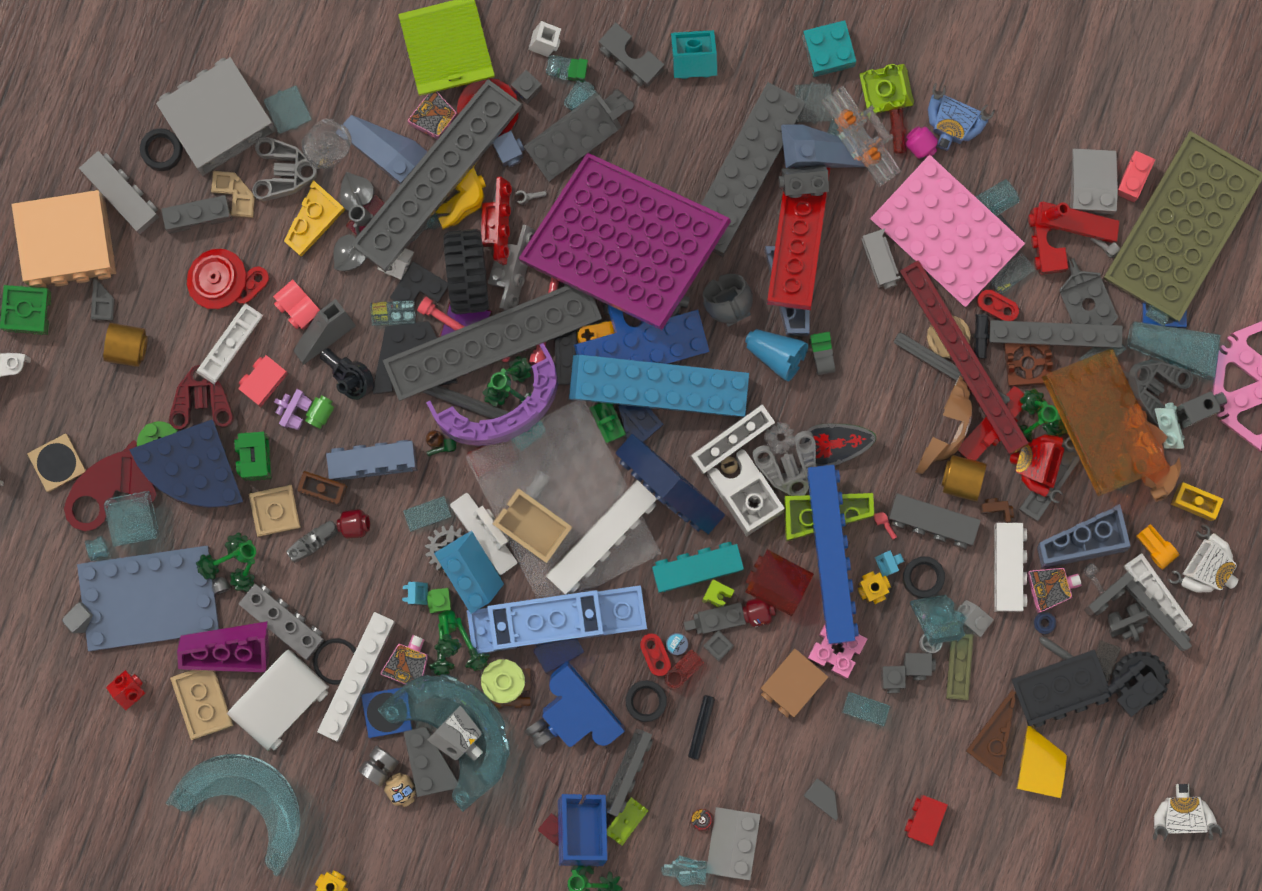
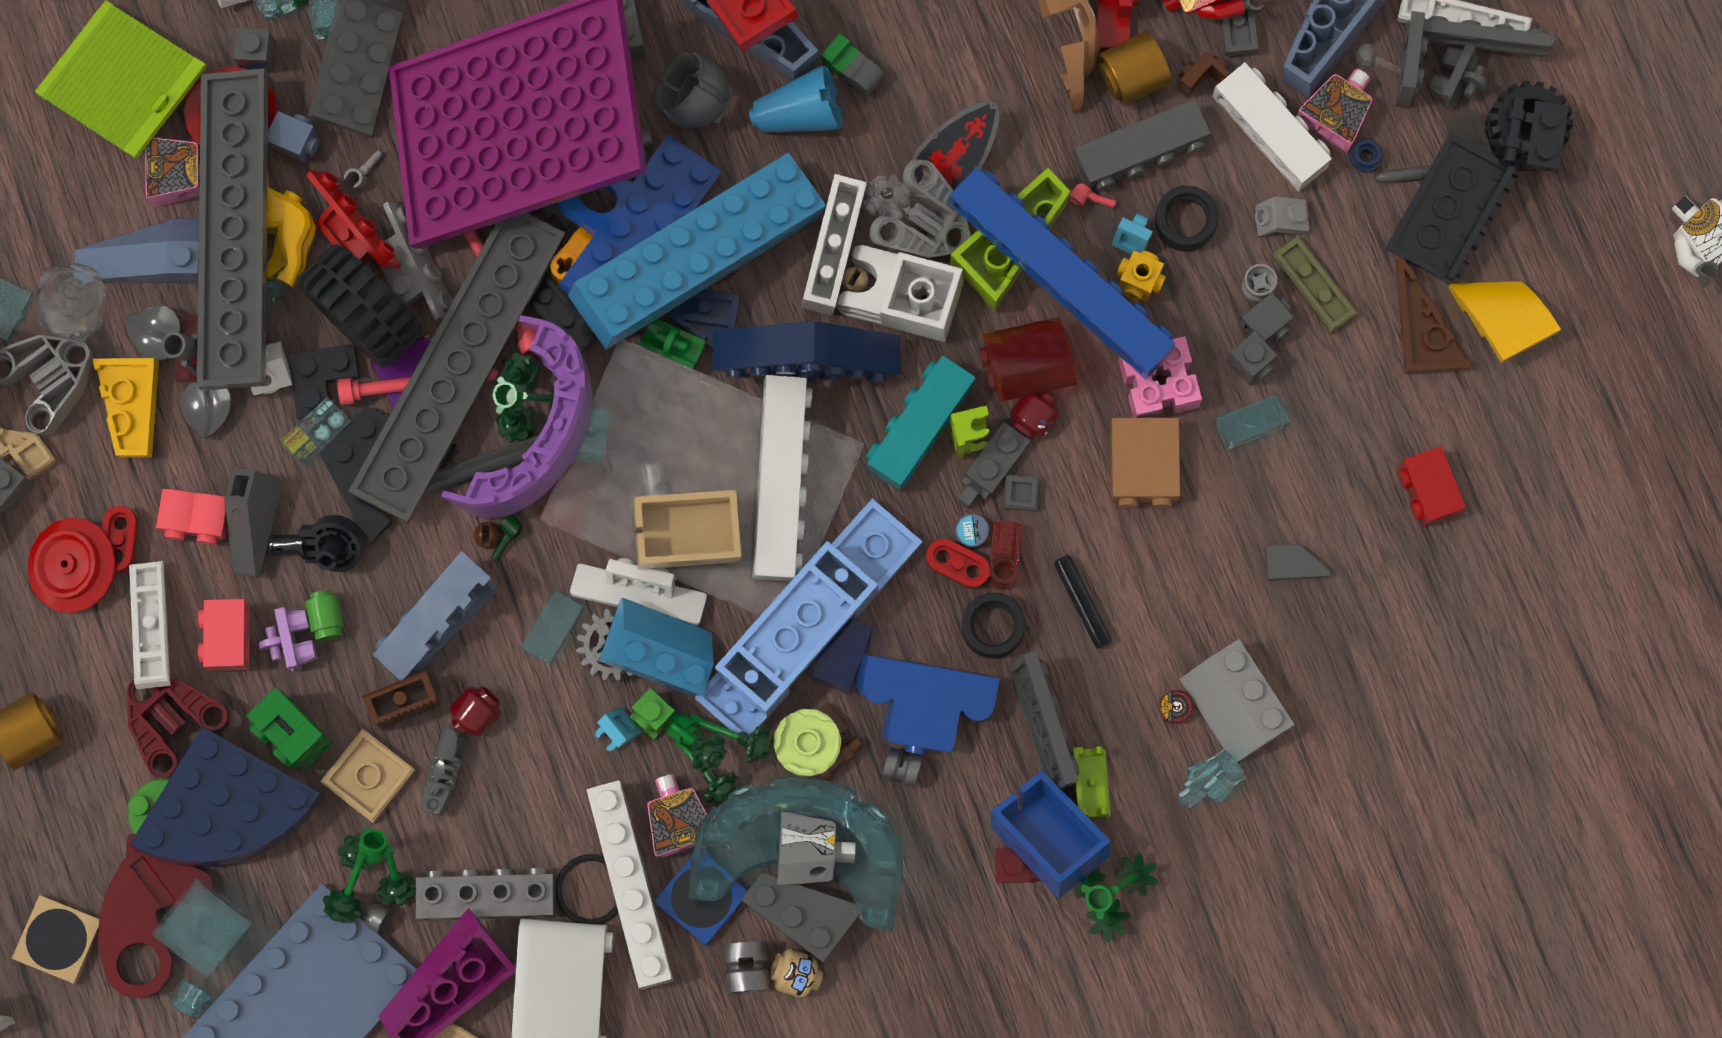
camera: 35 degrees left, 5 degrees down
(939, 619) = (1247, 247): clear light blue slope -> none

